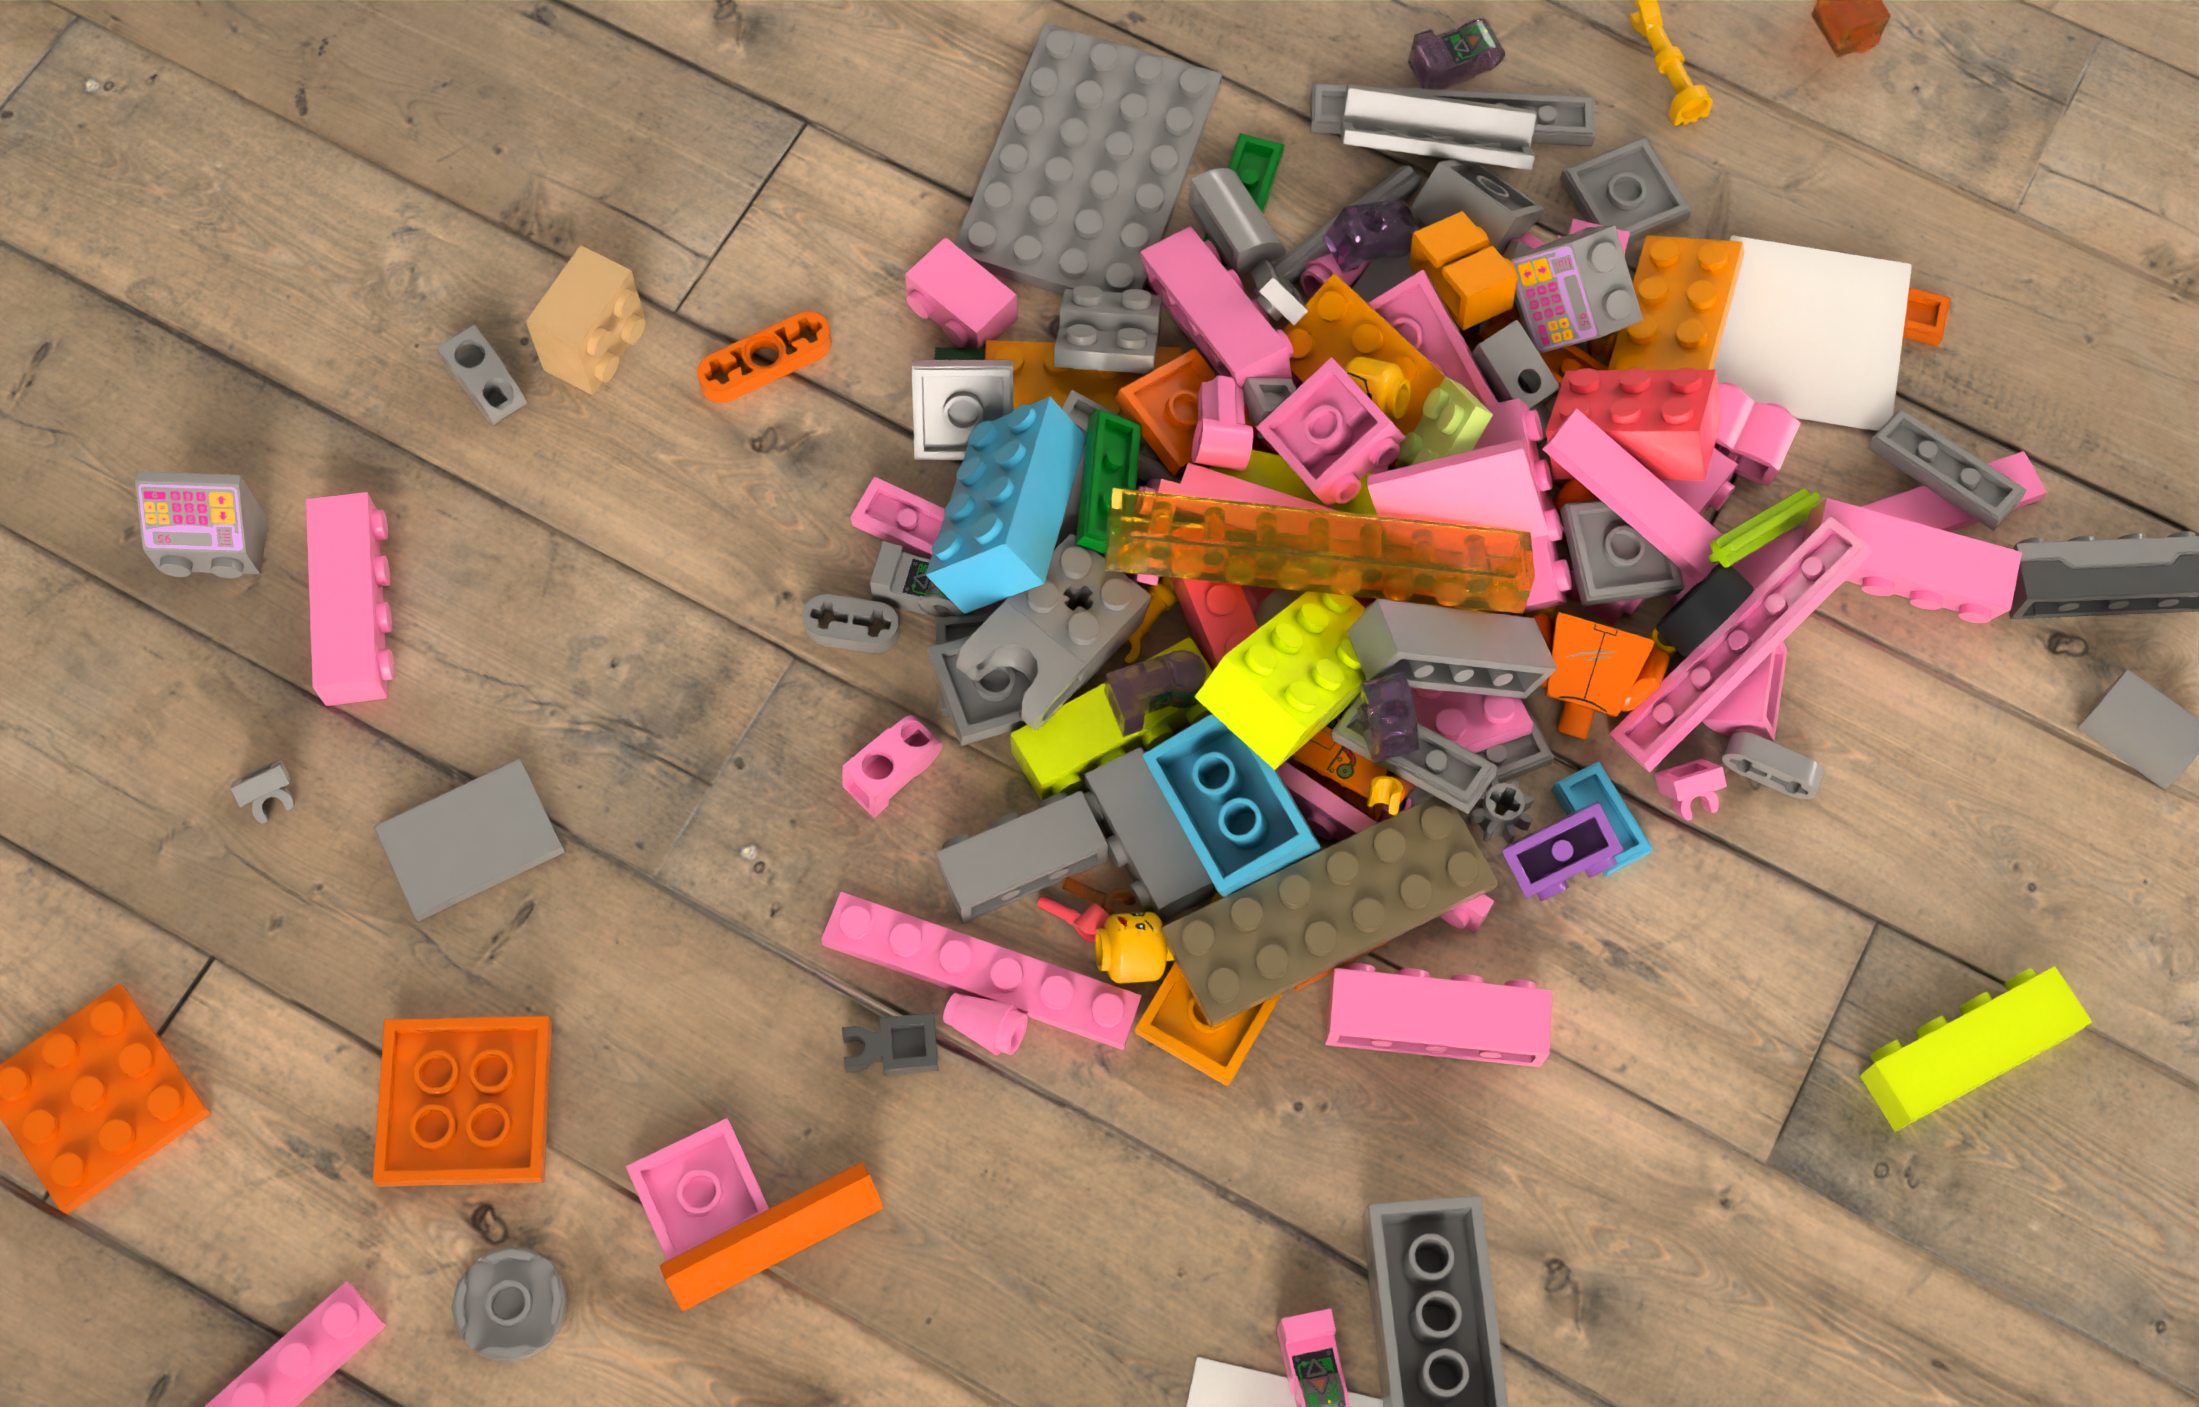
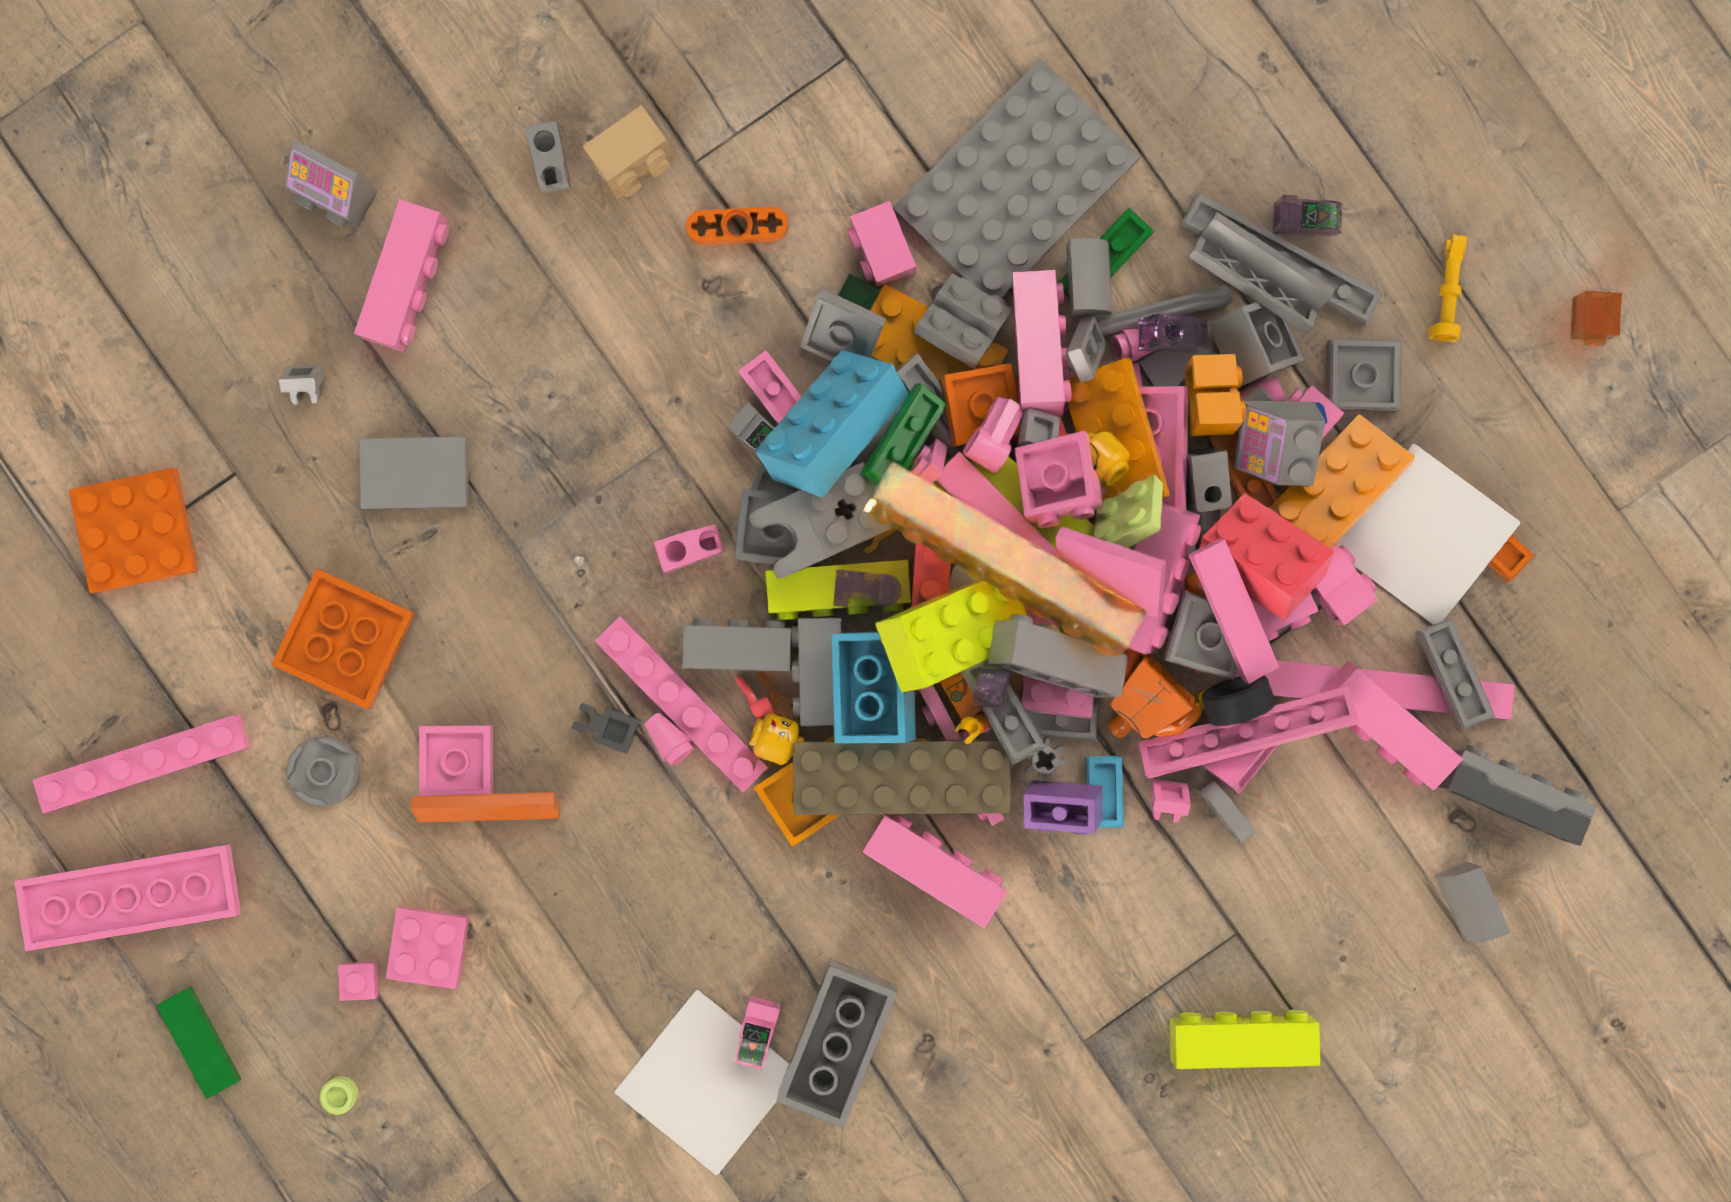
camera: 25 degrees right, 20 degrees up
(850, 623) = (702, 448): light grey beam -> none
(1762, 528) = (1308, 664): lime axle -> none

